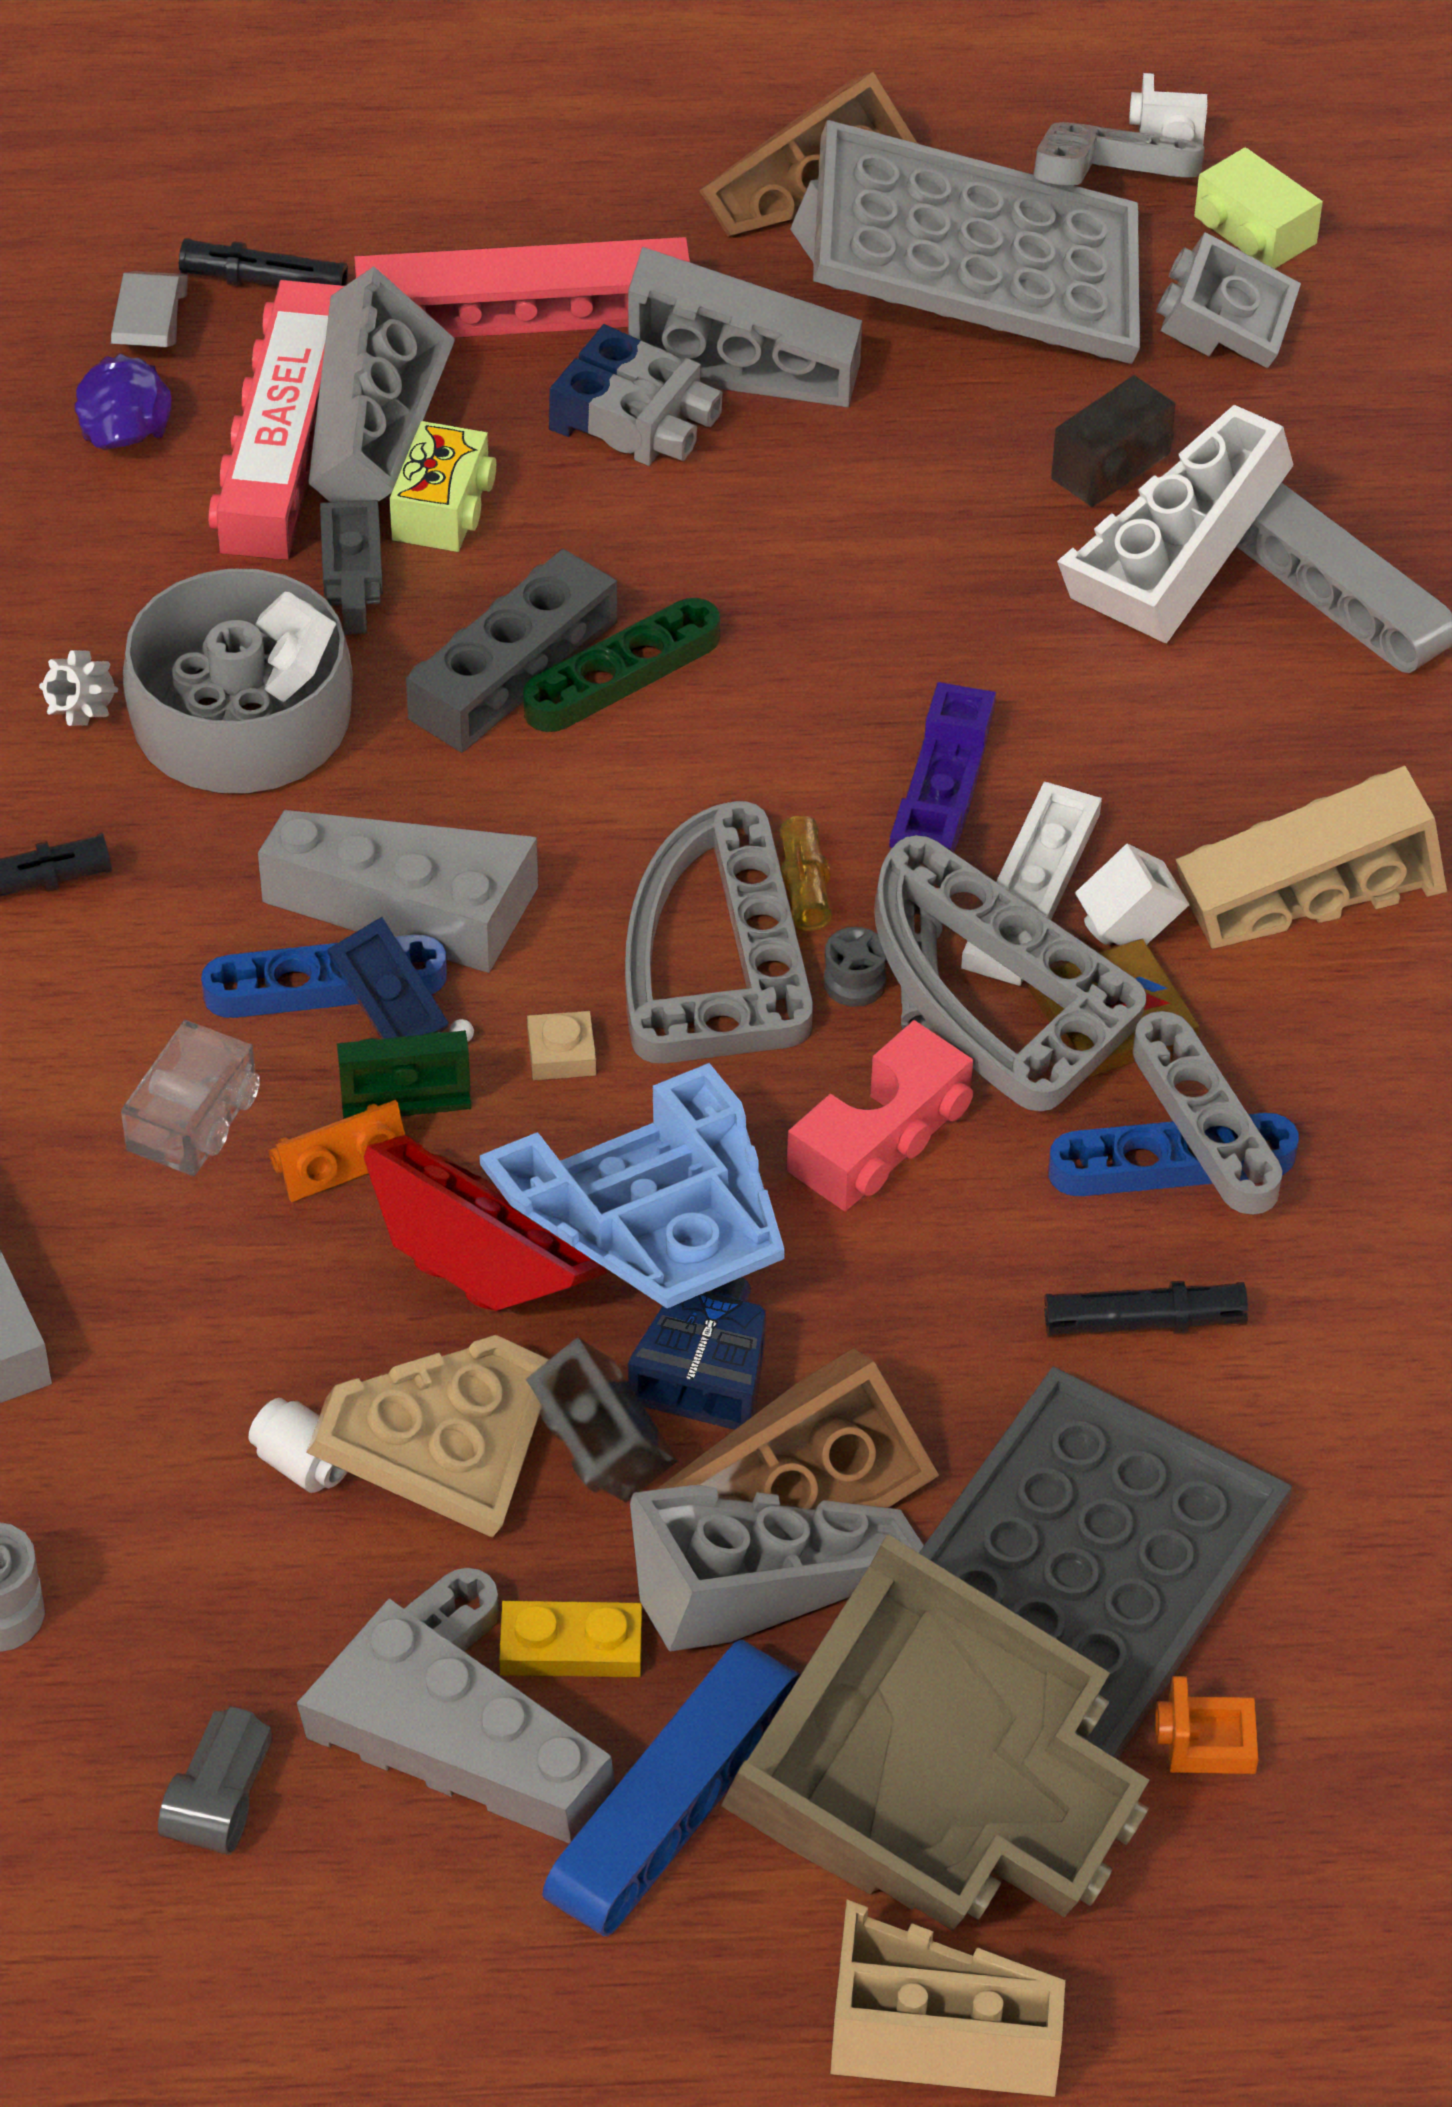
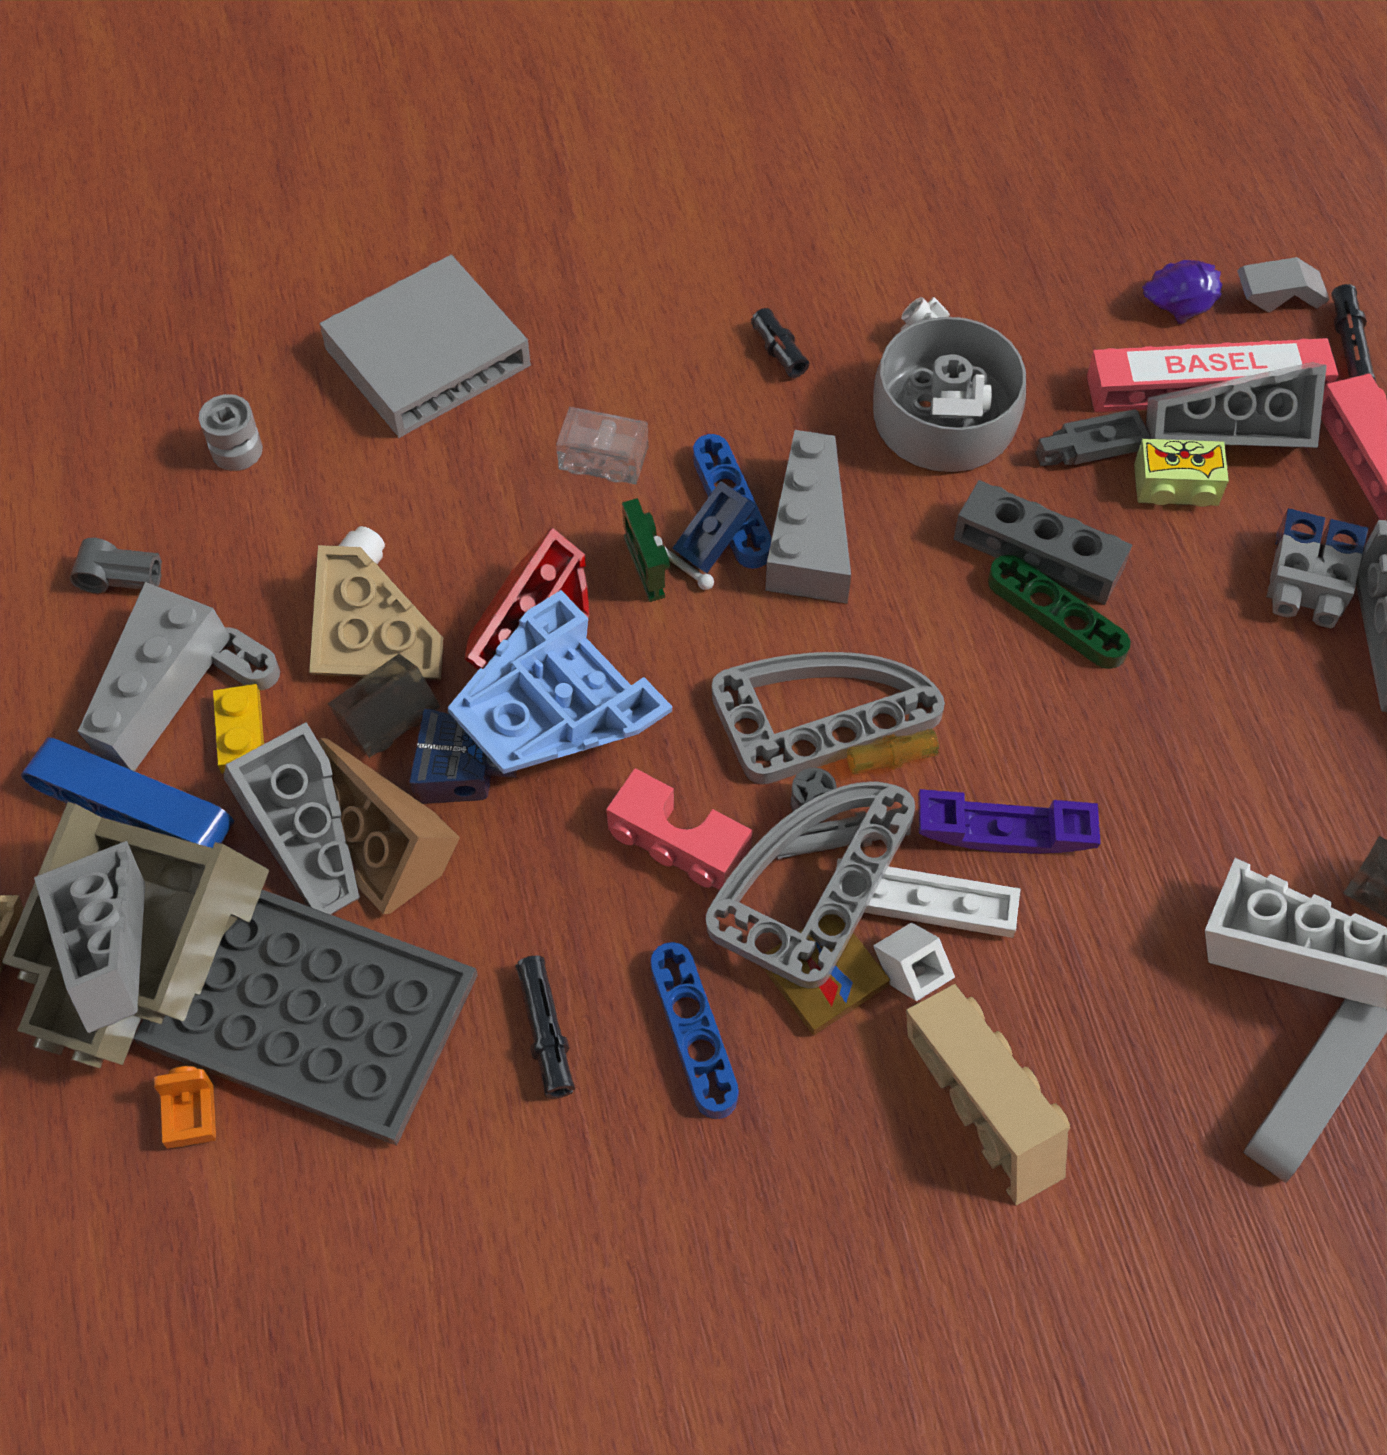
camera: 80 degrees right, 10 degrees up
(333, 1151) = (584, 530): orange hinge -> none
(561, 1045) = (707, 638): tan plate -> none
(977, 1739) = (97, 932): none -> light grey wedge
(1212, 1109) = (715, 1033): light grey beam -> none

